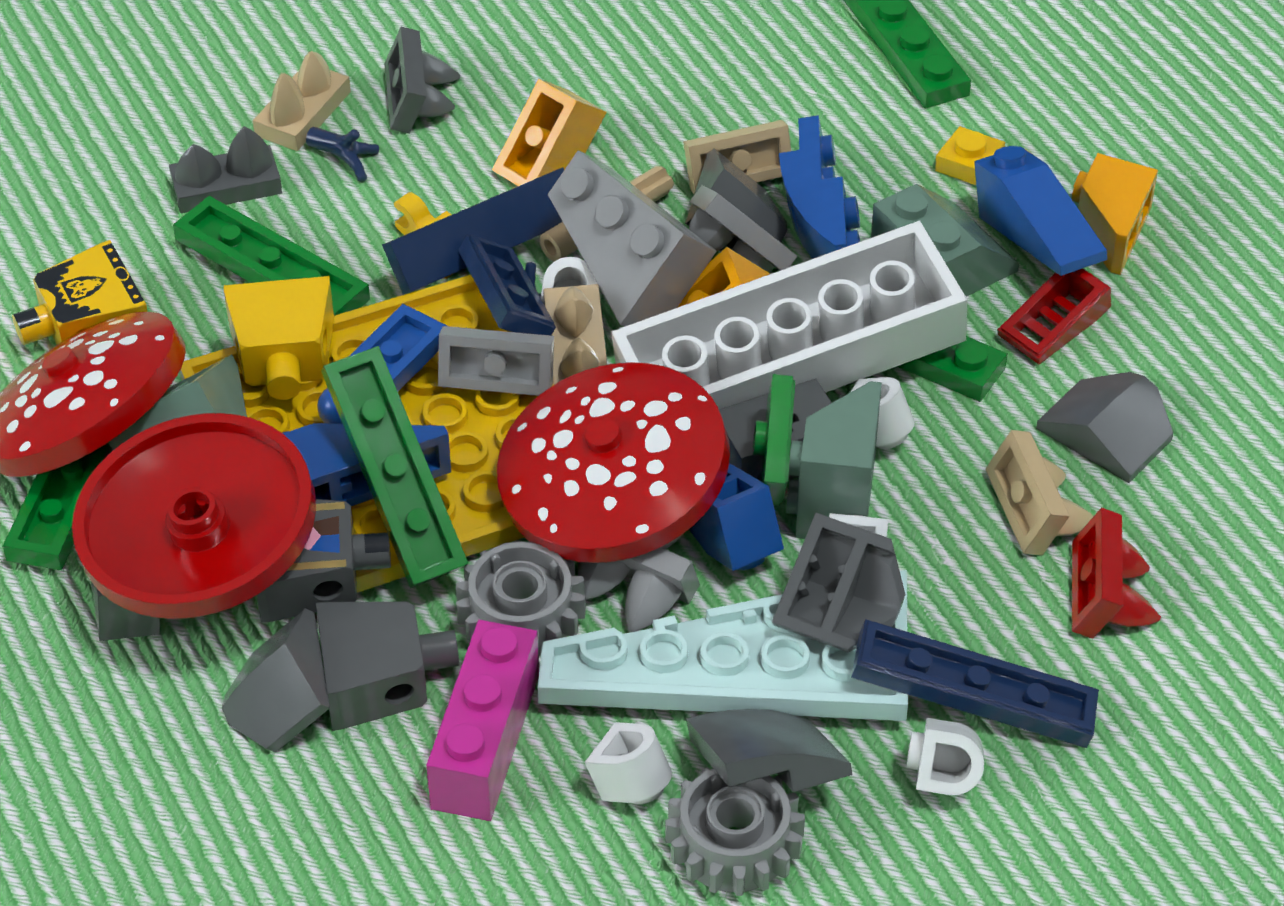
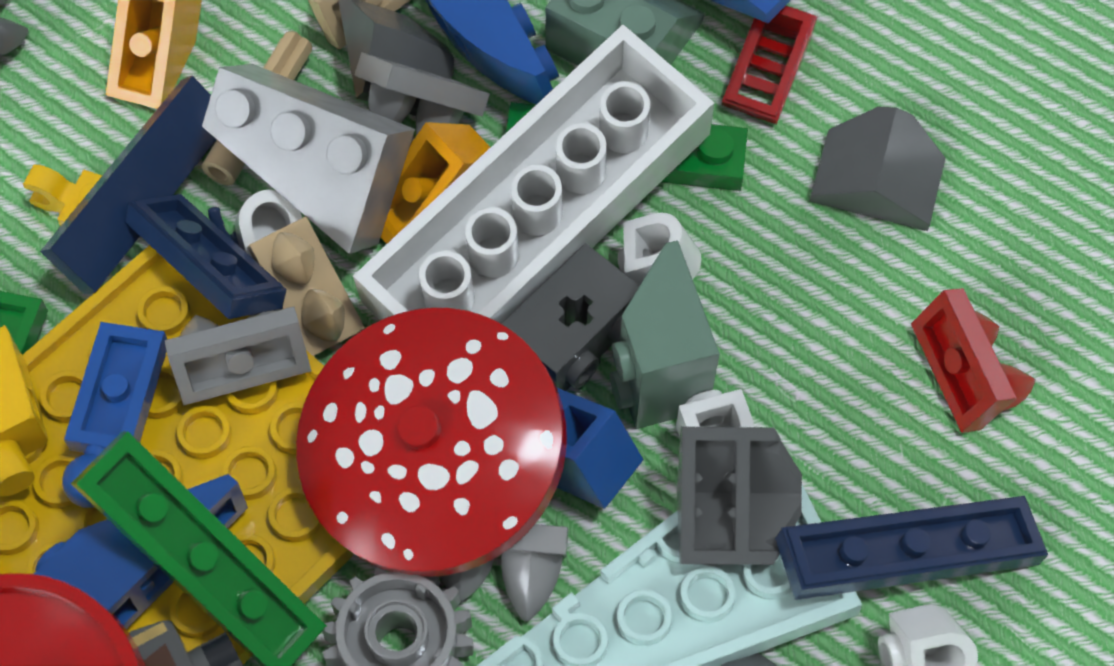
camera: 25 degrees left, 15 degrees up
(774, 435) = (589, 342): green plate -> none
(1030, 496) = (851, 291): tan tile -> none

